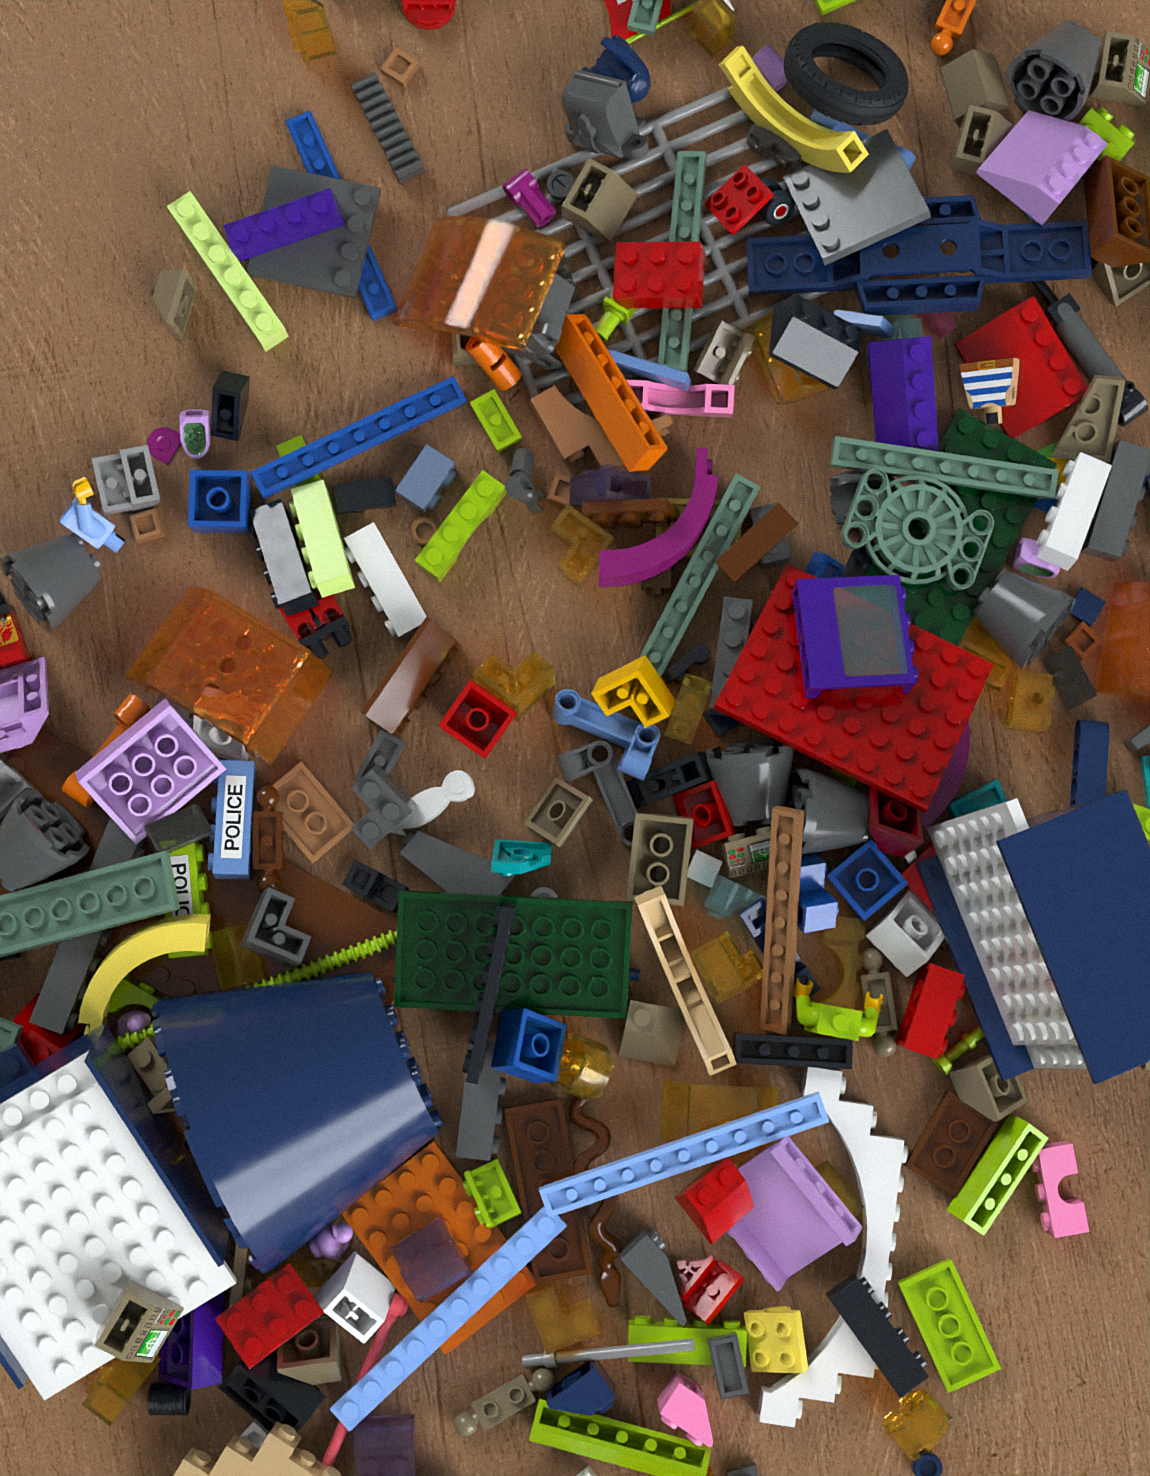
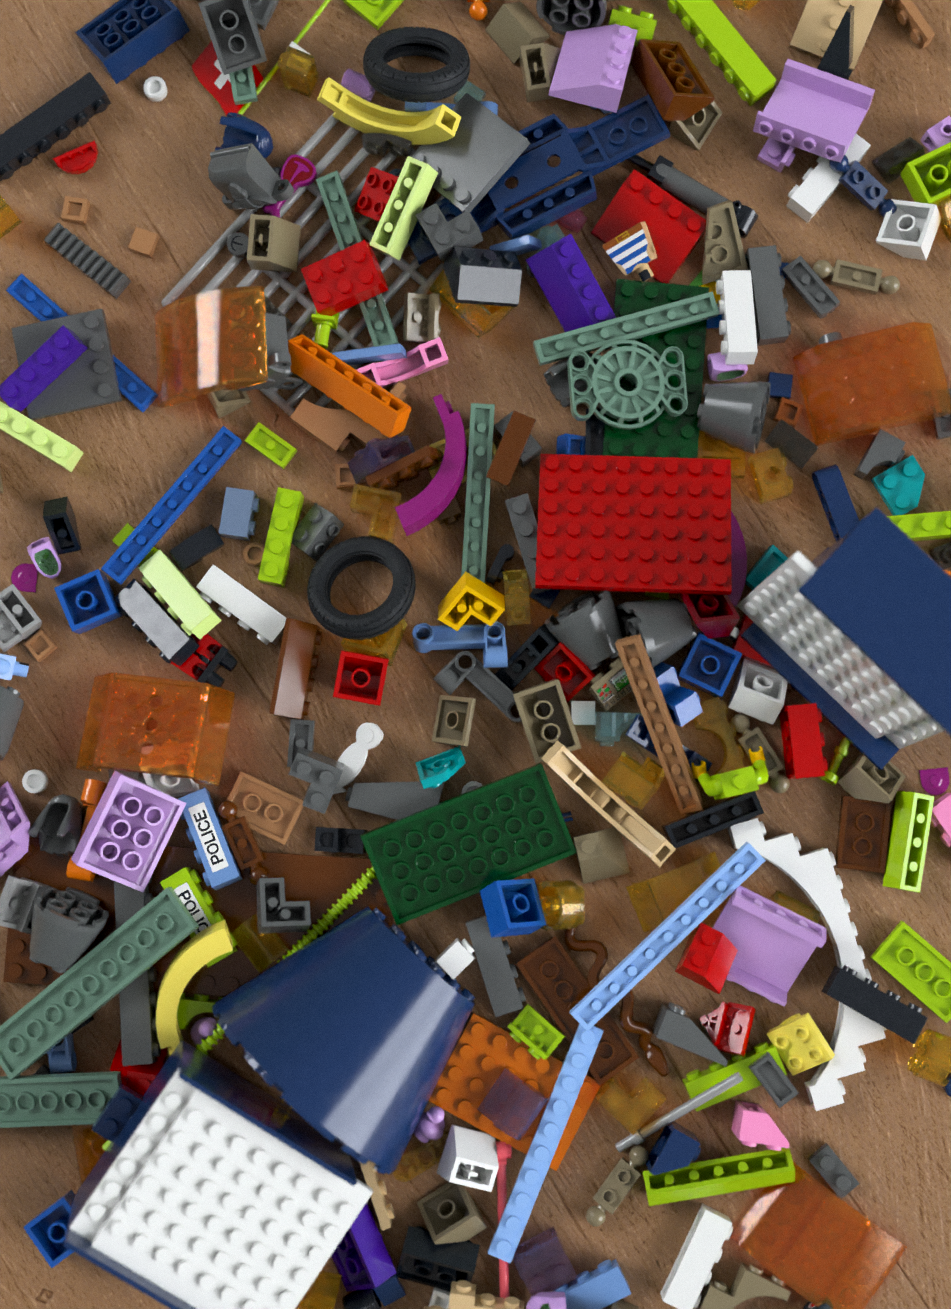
camera: 20 degrees left, 0 degrees up
(74, 670) = (35, 781): none -> white tile
(78, 730) = (59, 825): none -> dark grey hair
(137, 1324) = (312, 1259): dark tan slope -> none
(151, 1069) = (234, 1059): dark tan bracket -> none
(178, 829) = (170, 866): clear smoke slope -> none
(205, 1400) = (390, 1290): none -> dark blue tile
(269, 1316) = (409, 1204): red brick -> none
(442, 1071) = (456, 957): none -> white brick
(458, 135) = (143, 242): none -> medium nougat tile
(487, 1001) = (465, 888): black plate -> none
(494, 363) = (249, 402): orange pin -> none
(502, 537) = (316, 531): none -> dark grey bracket
(520, 485) = (312, 486): dark grey bar -> none
(524, 665) = (378, 620): none -> black tyre
(525, 192) = (214, 262): magenta piece -> none
(662, 136) = (299, 173): none -> piece
(759, 226) = (403, 205): none -> yellowish green brick
(790, 276) = (444, 235): none -> dark grey brick
(853, 633) = (615, 483): panel -> none
(895, 129) = (471, 89): none -> clear light blue tile
(1058, 1121) = (935, 780): none -> magenta piece

